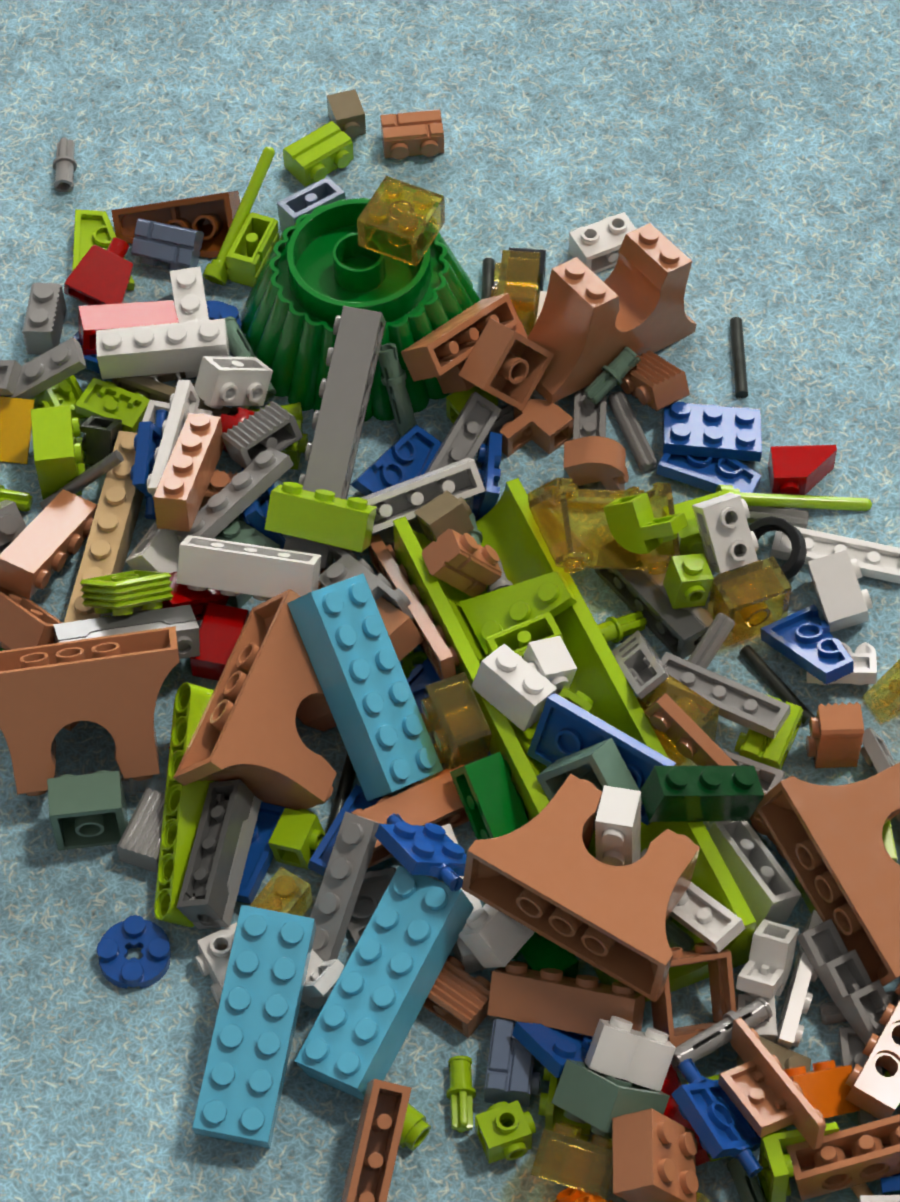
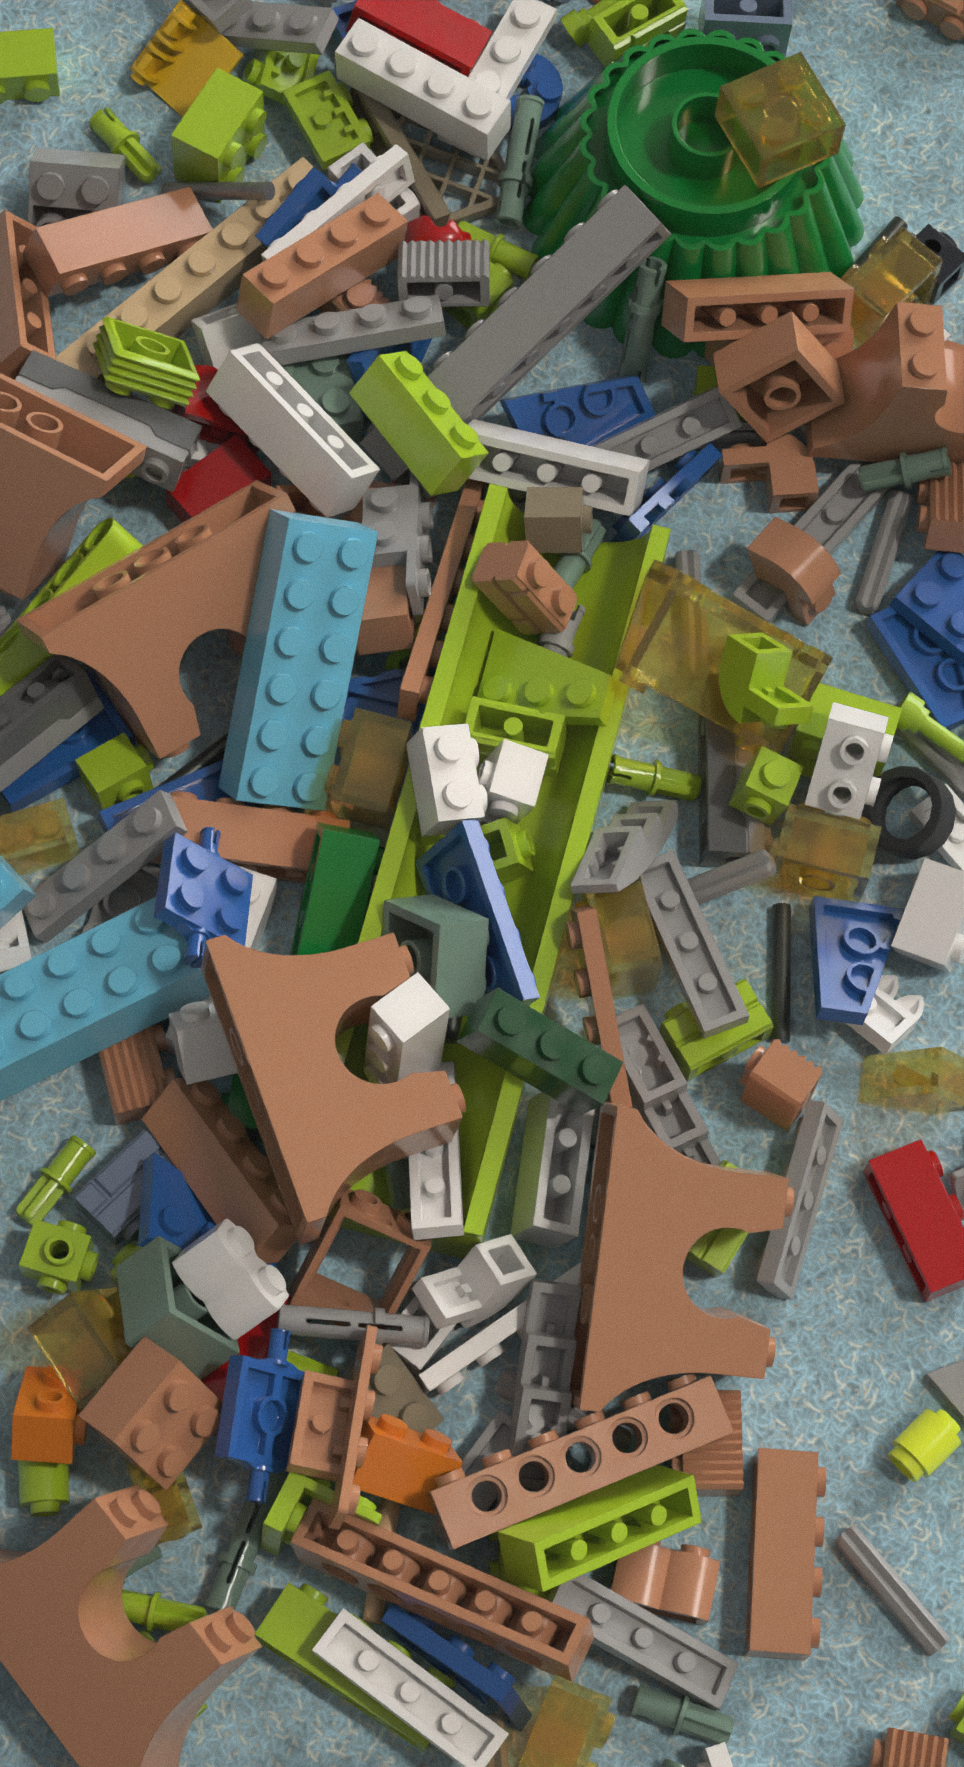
camera: 30 degrees right, 15 degrees up
(99, 437) = (279, 148): pearl dark grey brick -> none
(232, 381) = (469, 182): white brick -> none

